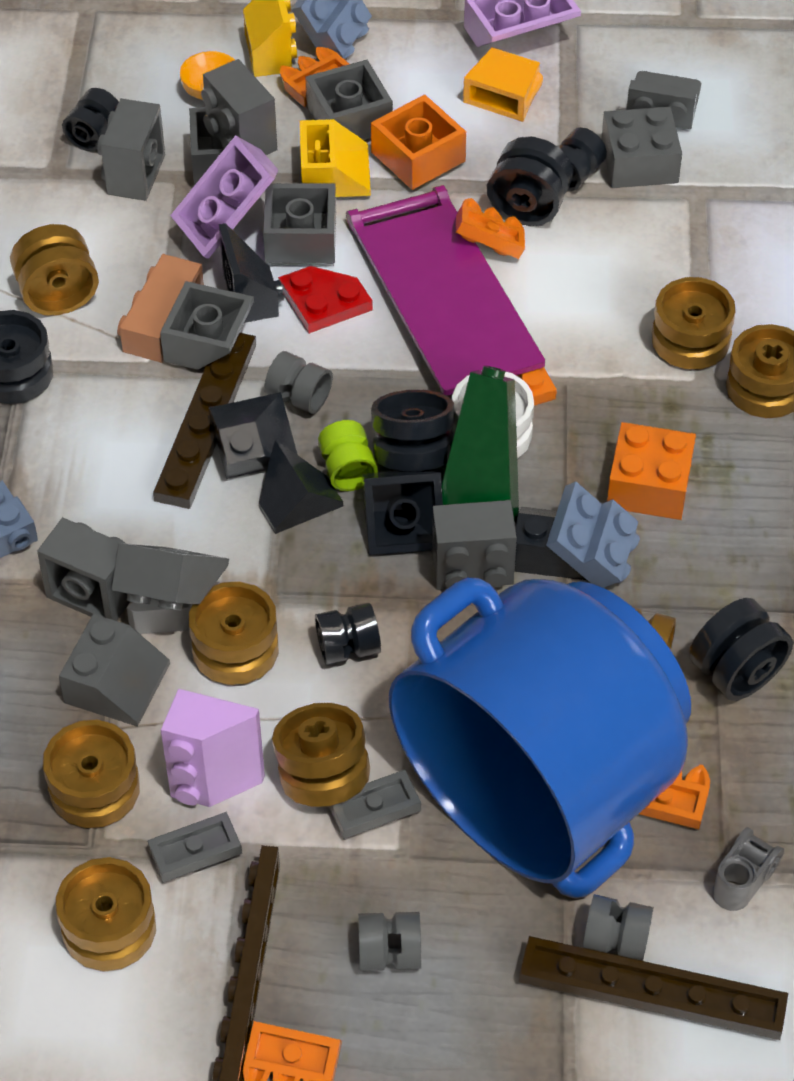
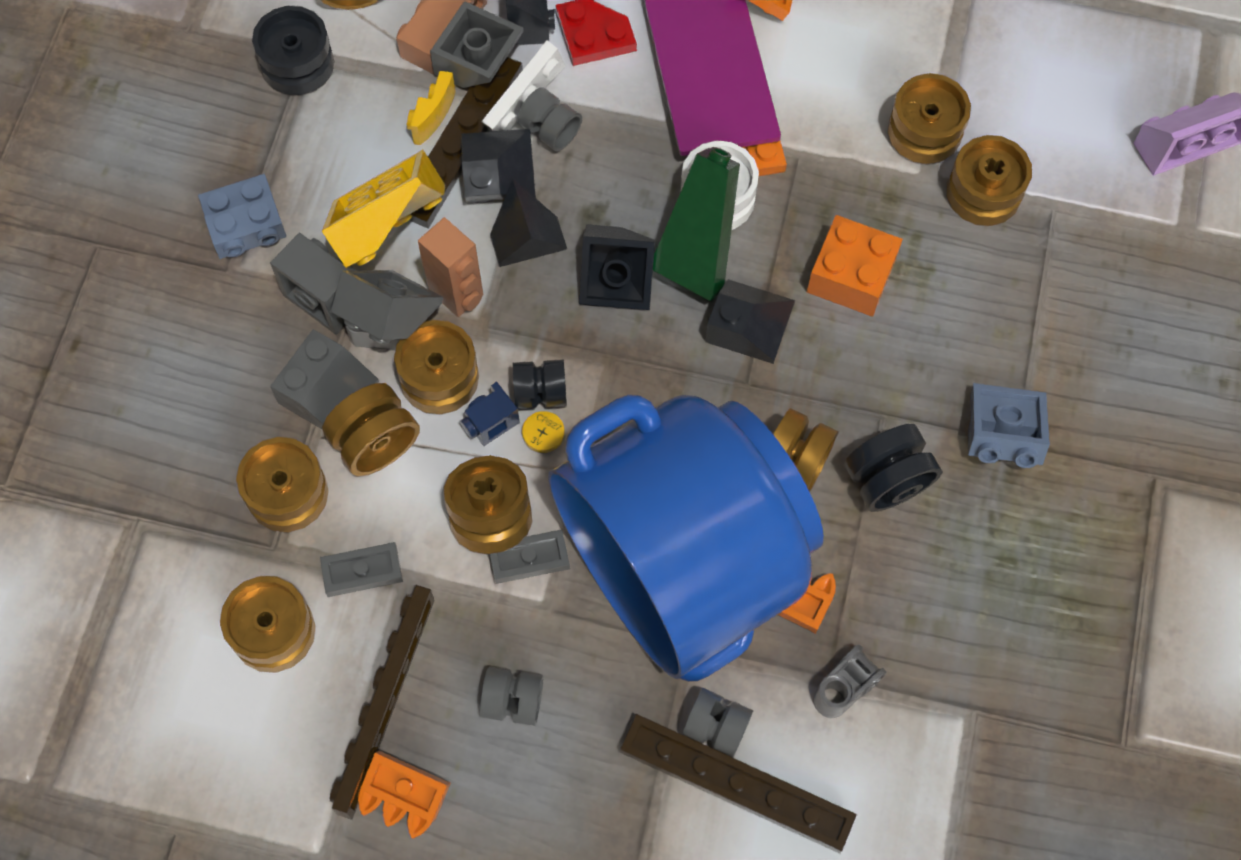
camera: 10 degrees right, 15 degrees up
(144, 482) = (367, 213): none -> yellow slope
(158, 685) = (370, 429): none -> pearl gold wheel
(169, 392) = (431, 110): none -> yellow slope
(211, 748) = (385, 486): lavender slope -> none
(232, 526) = (451, 267): none -> nougat brick
(278, 337) = (537, 74): none -> white wing
(301, 673) = (490, 416): none -> dark blue brick
(346, 454) = (578, 201): lime wheel -> none
(360, 682) = (543, 432): none -> yellow piece
(412, 430) = (641, 189): black wheel -> none
(474, 543) = (671, 317): dark grey brick -> none
(593, 536) = (784, 326): sand blue plate -> none

